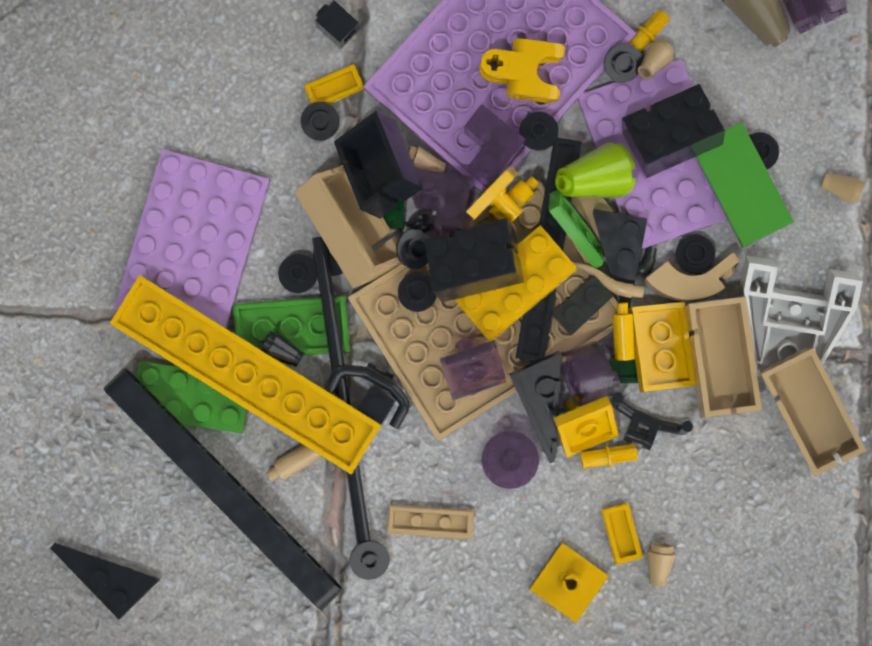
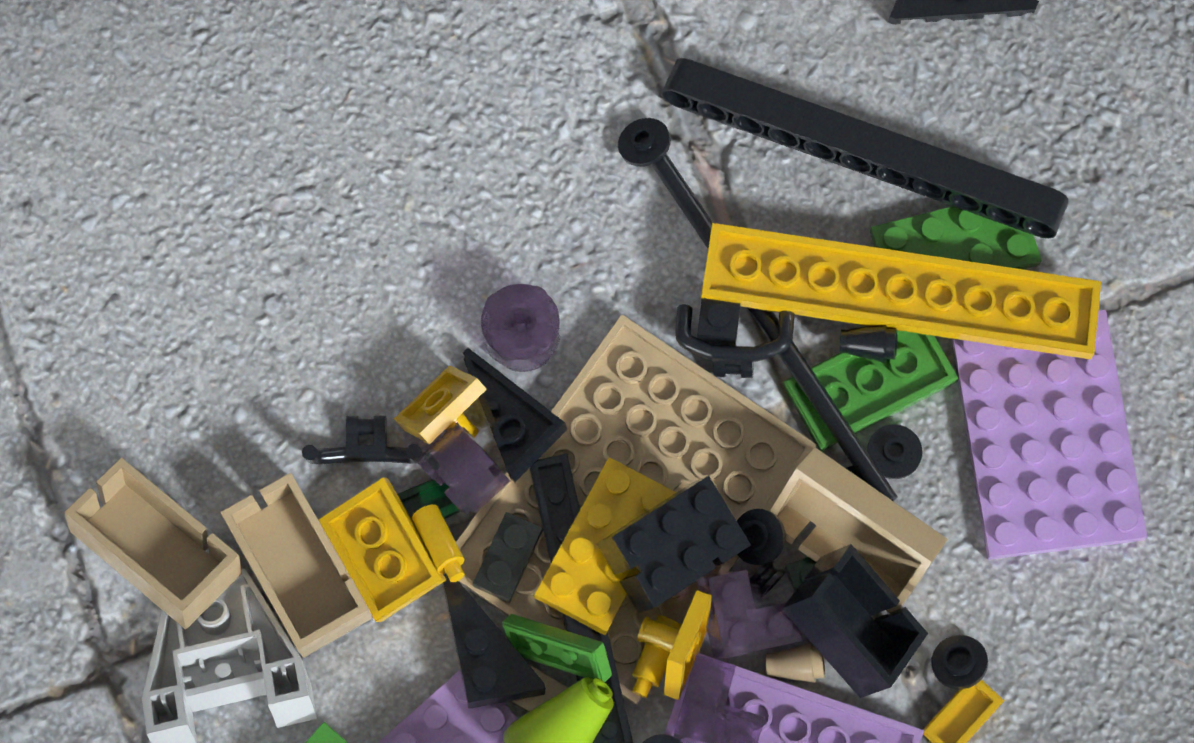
camera: 160 degrees right, 10 degrees down
(292, 463) = (795, 212): tan cylinder -> none
(416, 292) = (734, 481): black piece -> none
(430, 521) = (588, 219): tan tile -> none
(472, 368) = (616, 411): clear purple tile -> none
(568, 582) = (385, 217): yellow tile -> none
(608, 456) = (396, 387): yellow axle -> none
(616, 287) = (471, 598): tan animal -> none
(621, 533) = (341, 300): yellow tile -> none
(647, 262) = (444, 657): pearl dark grey animal -> none
(660, 562) = (279, 285): tan cone -> none
(684, 288) = (373, 642): tan arch -> none
(695, 254) = (385, 694): black piece -> none

